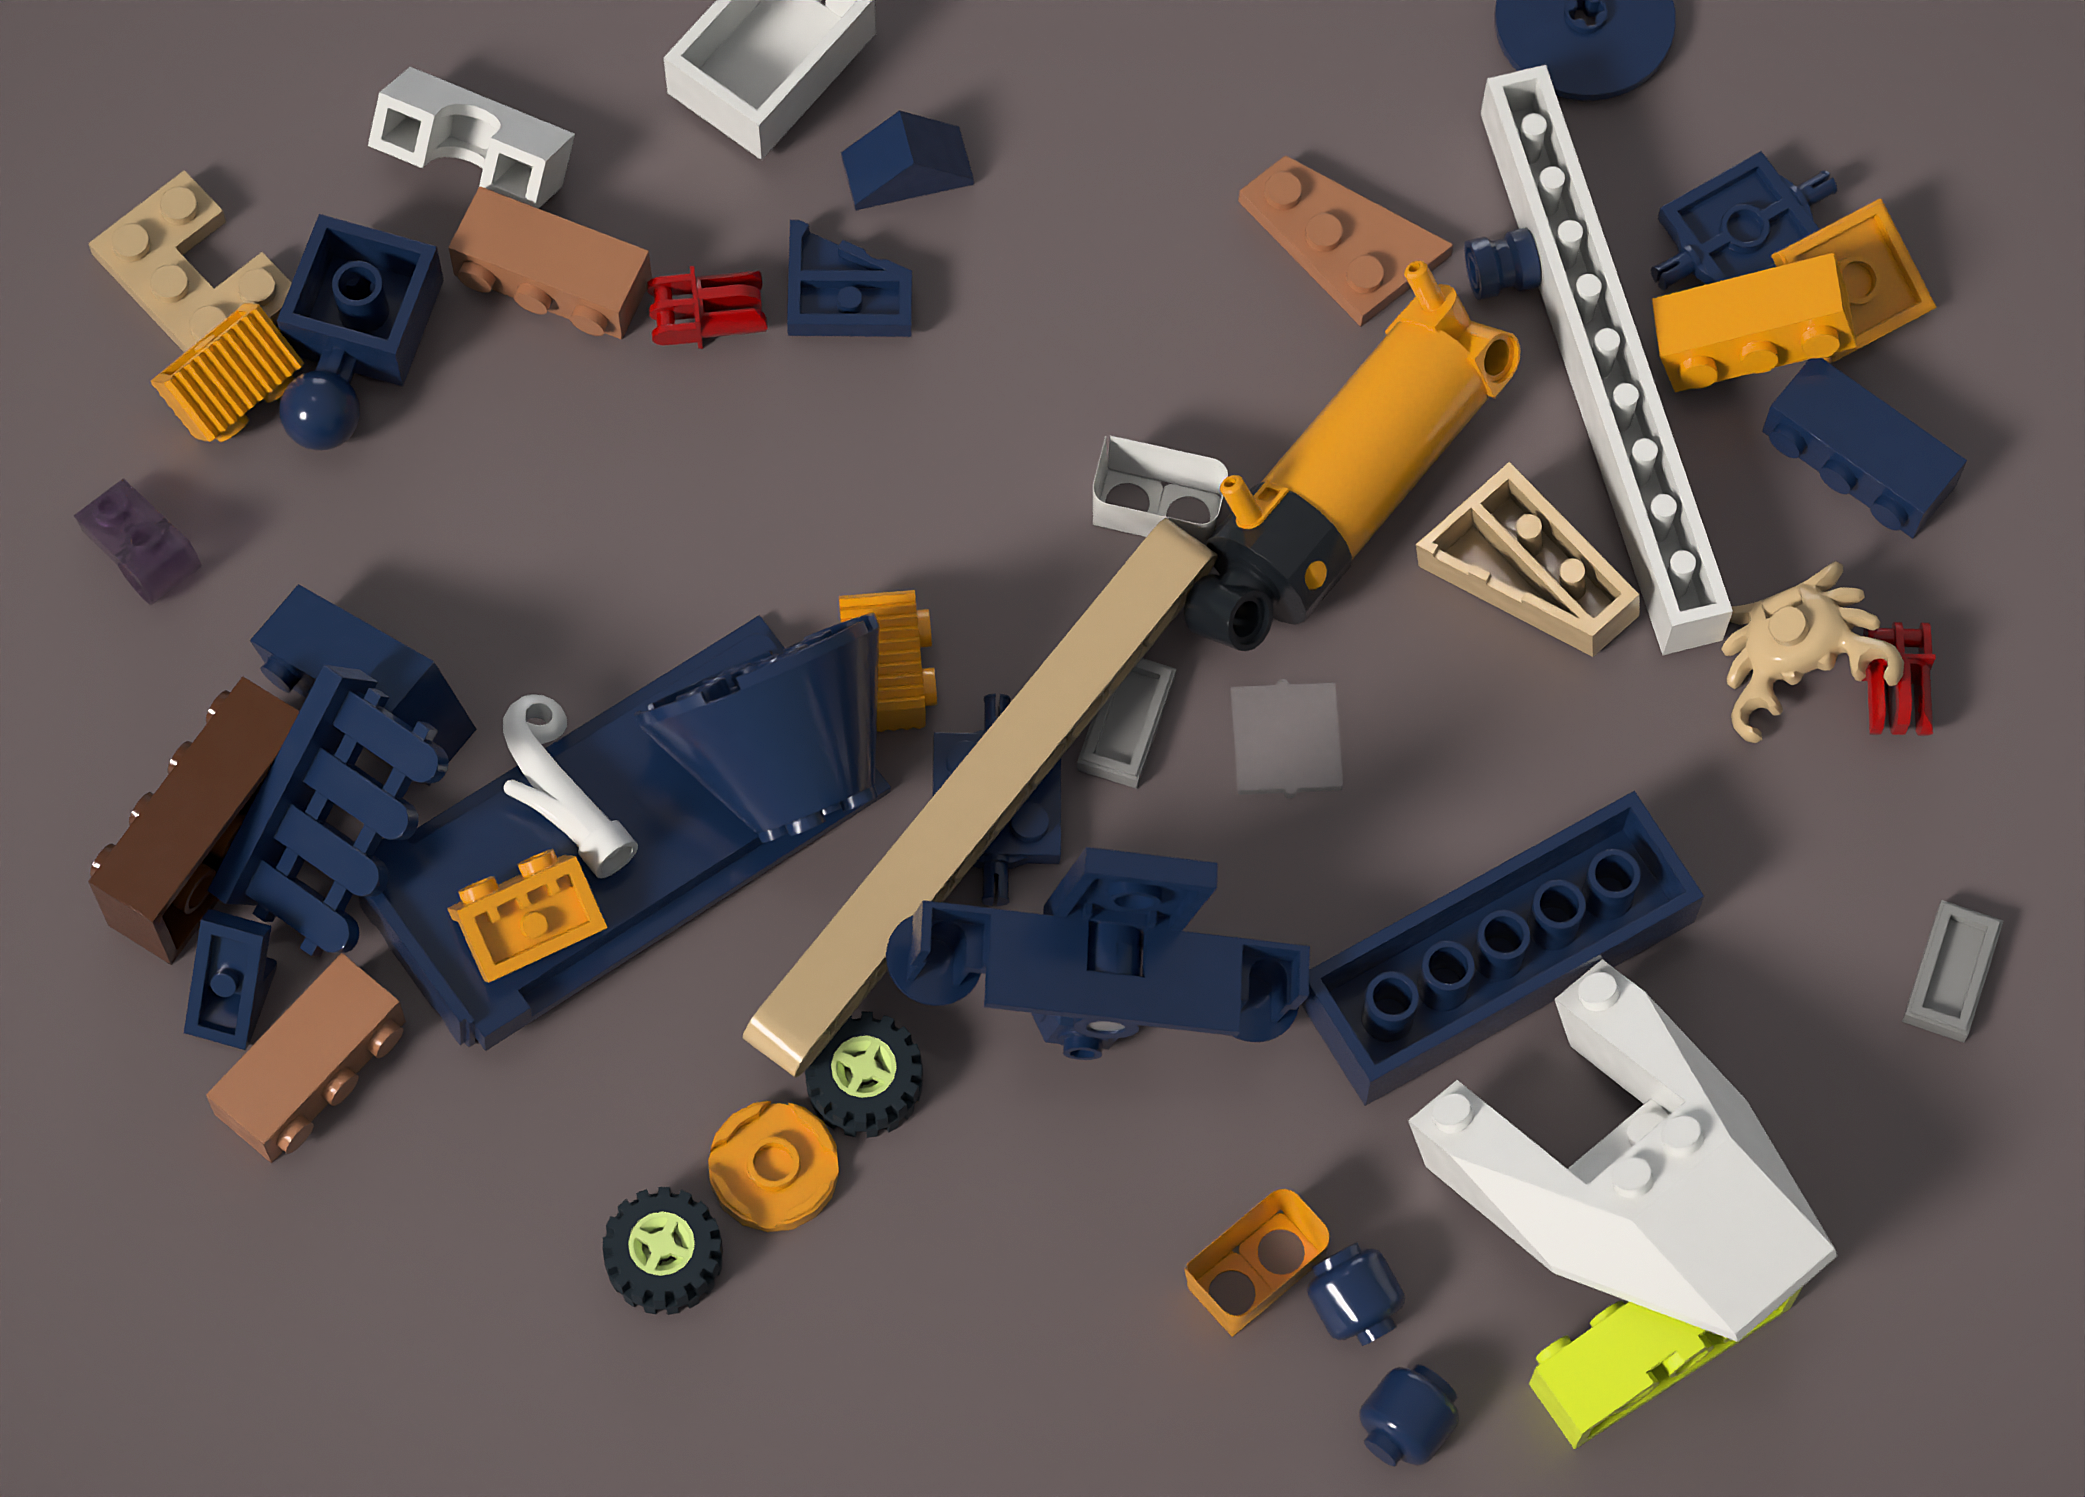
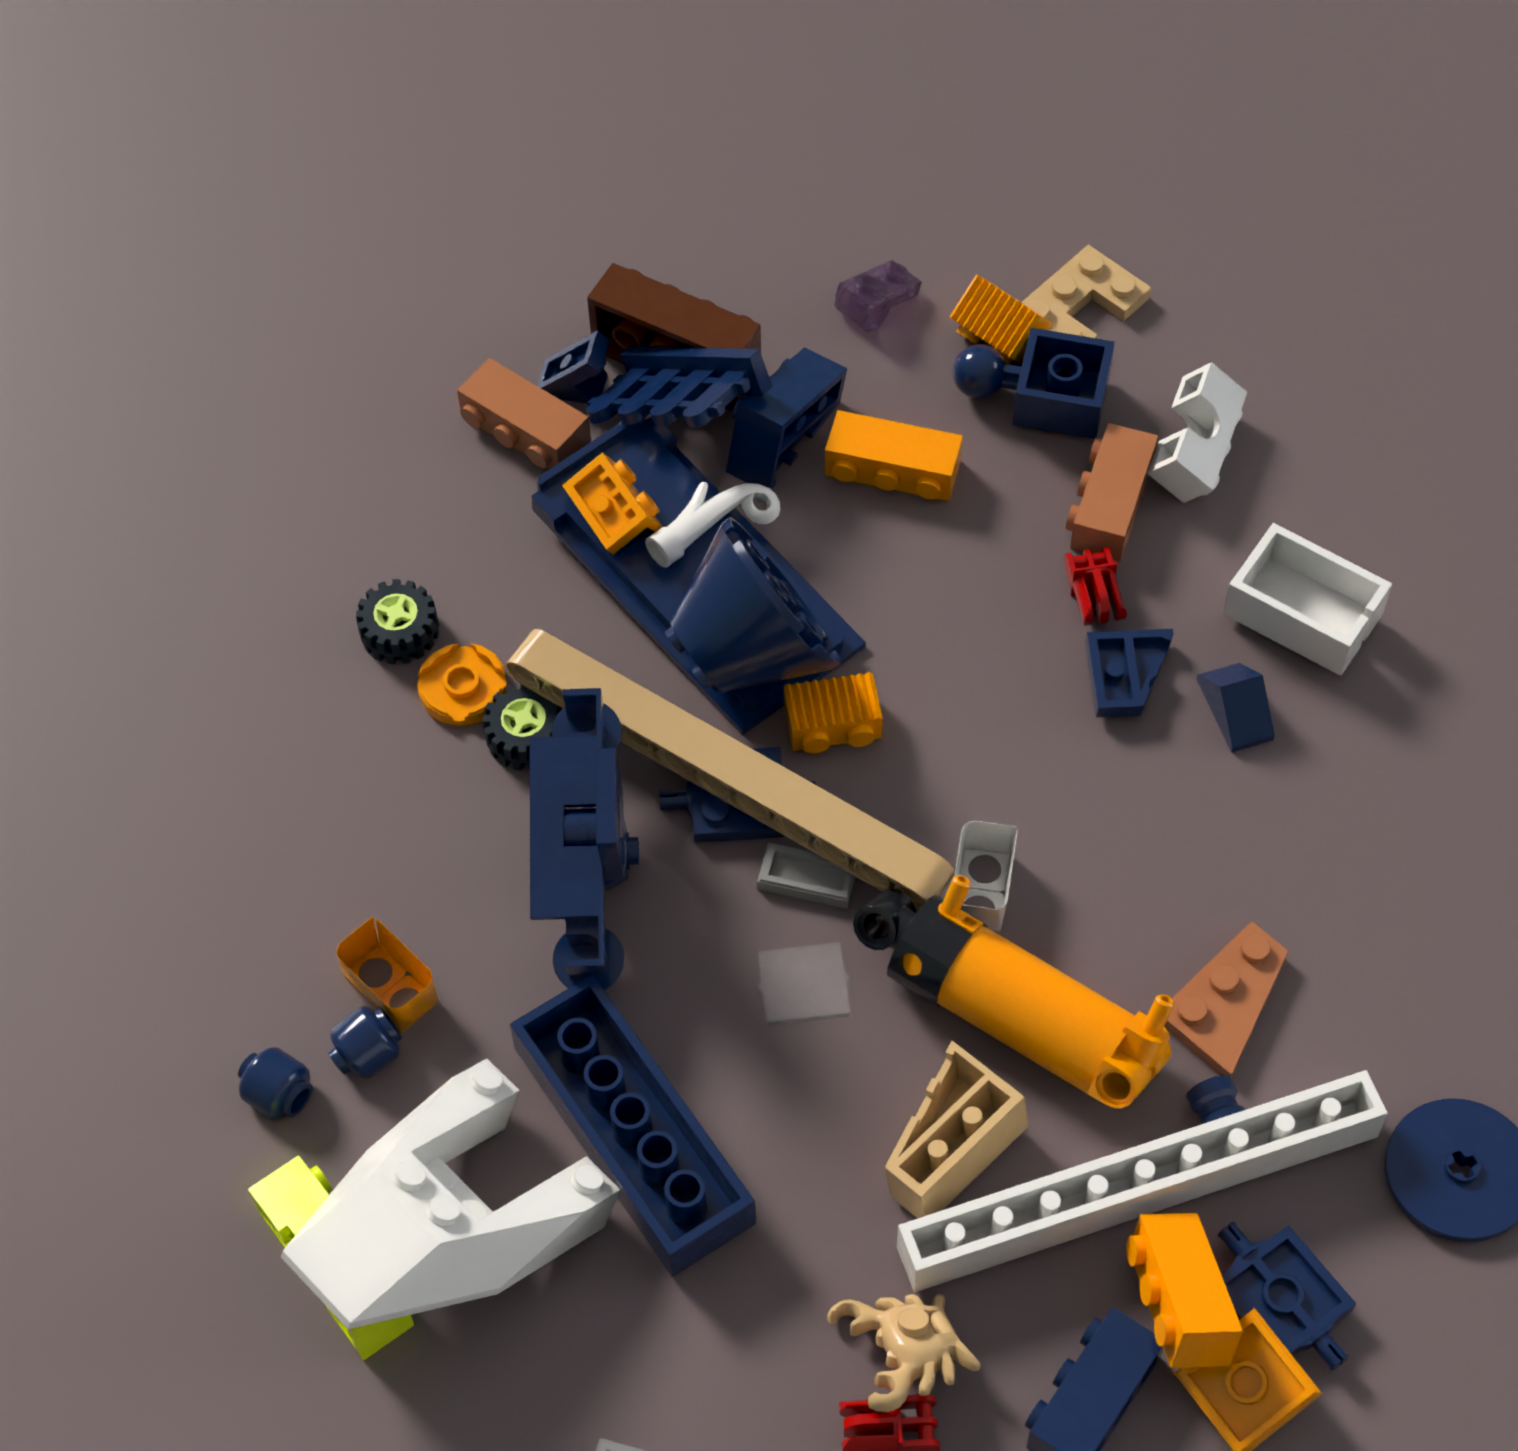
camera: 90 degrees right, 10 degrees down
(451, 545) = (893, 455): none -> light orange brick

